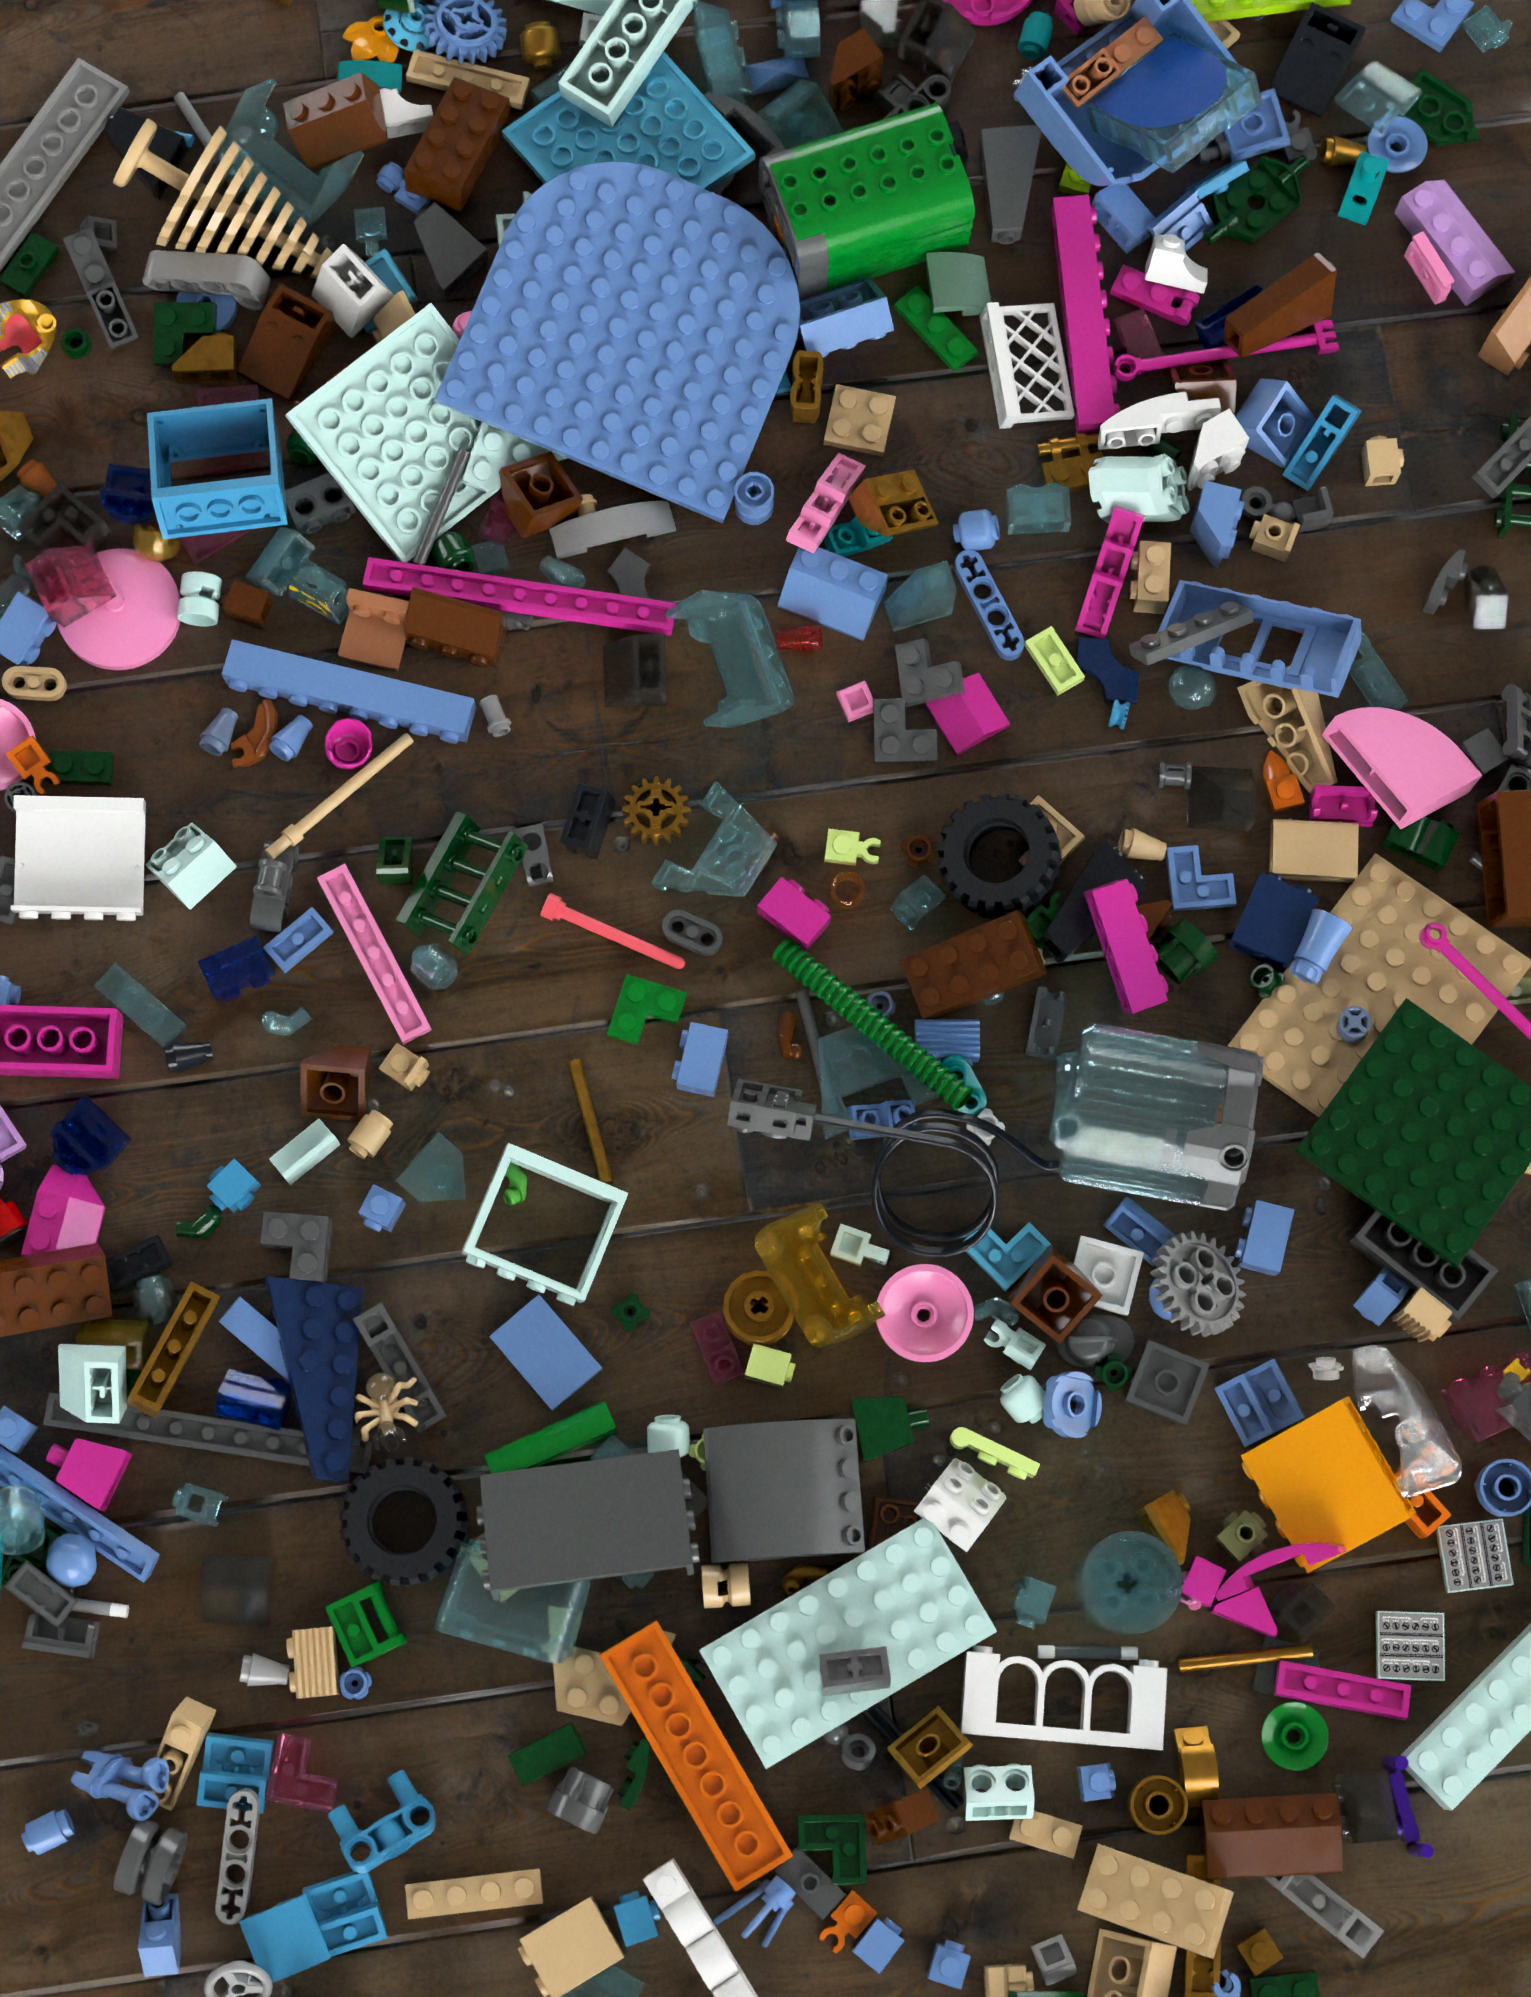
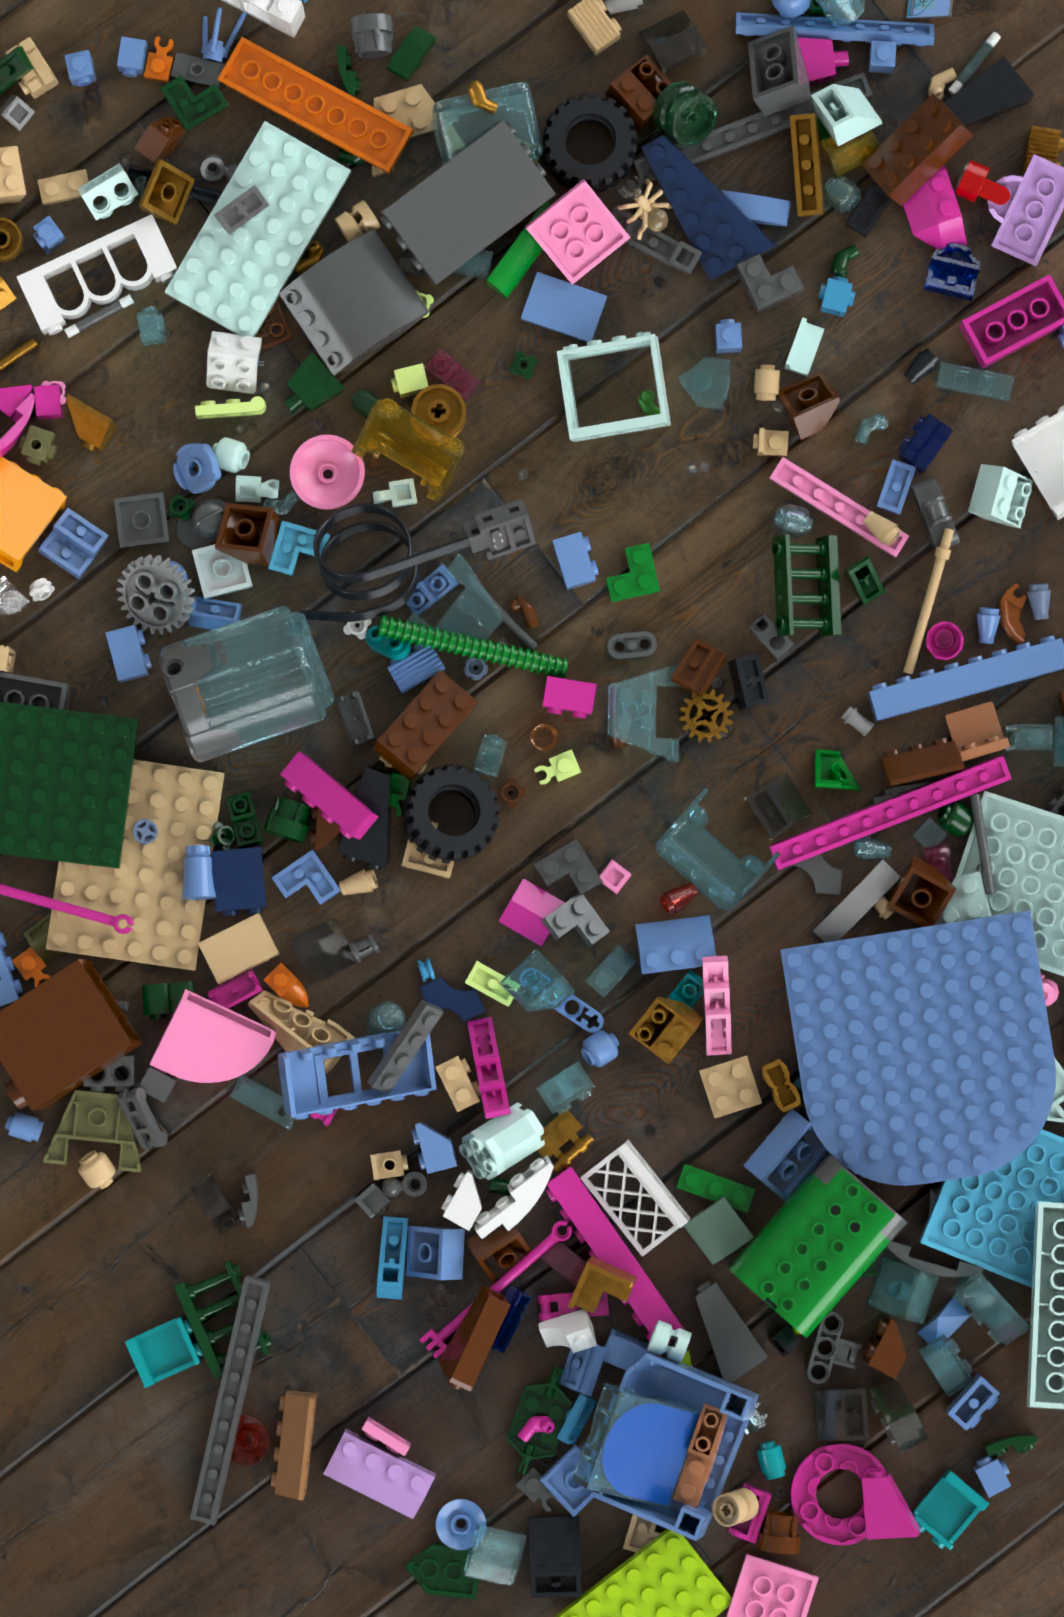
camera: 150 degrees right, 10 degrees up
(138, 1478) = (778, 71): none -> dark grey slope
(210, 1506) = (726, 90): clear light blue window -> none
(254, 1399) = (736, 166): clear blue brick -> none
(274, 1489) = (685, 113): none -> clear green wheel
(307, 1548) = (638, 90): none -> reddish brown slope
(341, 898) = (882, 528): none -> tan cone
(346, 1679) = (561, 21): medium blue plate -> none
(355, 1629) = (579, 59): green plate -> none
(479, 1422) = (577, 231): none -> bright pink plate
(502, 1636) = (478, 98): none -> pearl gold arm
(556, 676) = (832, 772): none -> green slope
(556, 909) = (733, 609): coral piece -> none
(590, 1121) = (595, 448): pearl gold bar -> none
(633, 865) = (699, 667): none -> reddish brown plate
(668, 1433) = (449, 296): light aqua head -> none
(754, 498) = (769, 980): medium blue wheel -> none
(833, 1366) = (363, 402): none -> clear green brick
(1009, 626) = (537, 984): none -> clear light blue slope
(1074, 187) = (660, 1337): none -> light aqua wheel
(1114, 296) = (601, 1278): none -> pearl gold panel
(1143, 1561) = (93, 348): clear light blue brick -> none
(1231, 985) = (244, 820): none -> dark green slope
(1263, 194) = (536, 1424): none -> dark pink arm
(1339, 151) = (499, 1496): pearl gold cone -> none
(1364, 182) = (466, 1473): teal torso -> none
(1381, 461) = (342, 1267): tan brick -> none
(1381, 1296) = (29, 657): medium blue brick -> none

